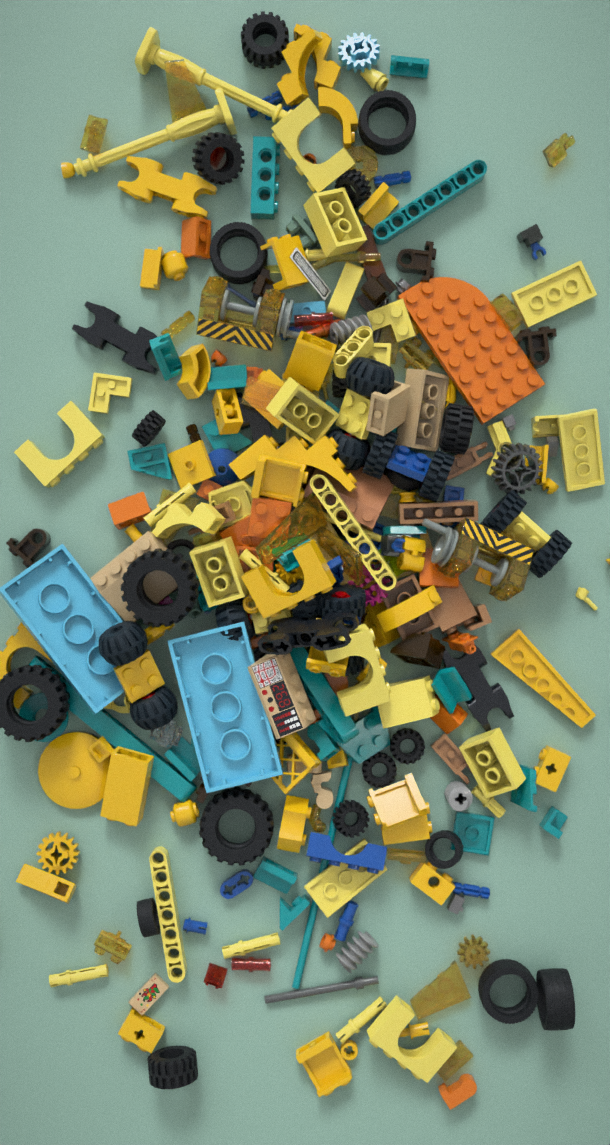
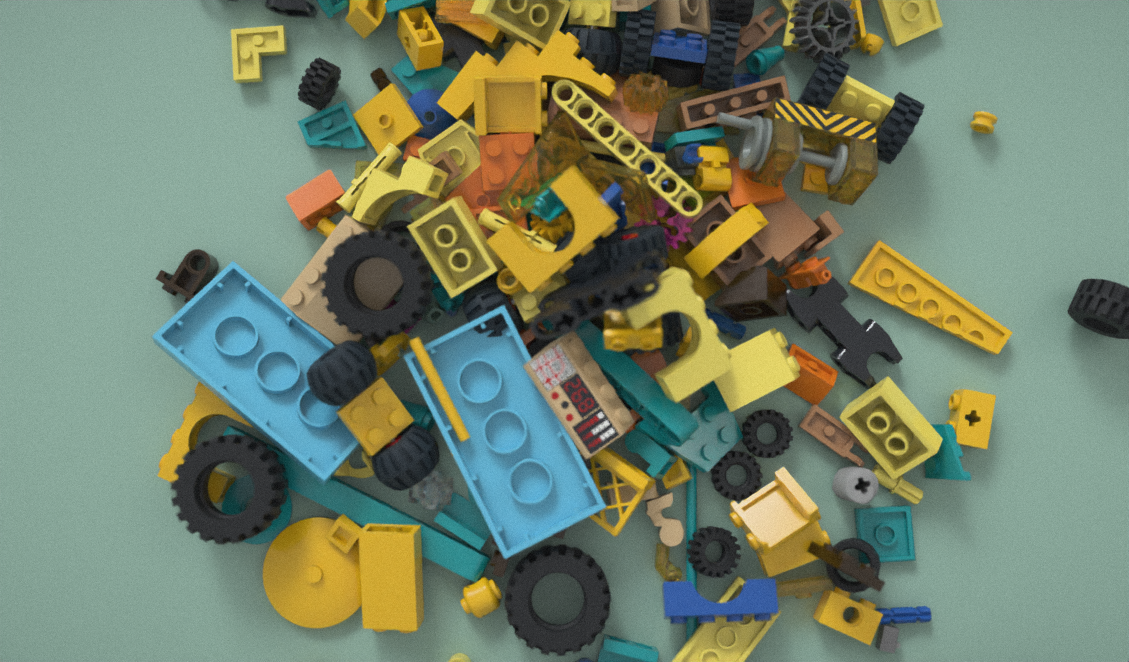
camera: 10 degrees left, 5 degrees down
(85, 437) = (201, 169): light yellow arch -> none
(169, 678) = (421, 414): none -> teal cone
(187, 668) = (439, 389): none -> yellow bar
(293, 823) = (635, 578): yellow brick -> none
(376, 492) = (645, 93): none -> clear yellow gear
(394, 661) = (726, 325): none -> blue axle
(407, 497) = (686, 94): yellow bush -> none
(436, 849) = (847, 564): none -> dark brown plate
(450, 688) = (808, 338): teal panel -> none
(468, 481) = (762, 60): none -> teal cone
(553, 822) = (992, 492): teal panel -> none
(582, 594) = (950, 177): light yellow hand -> none

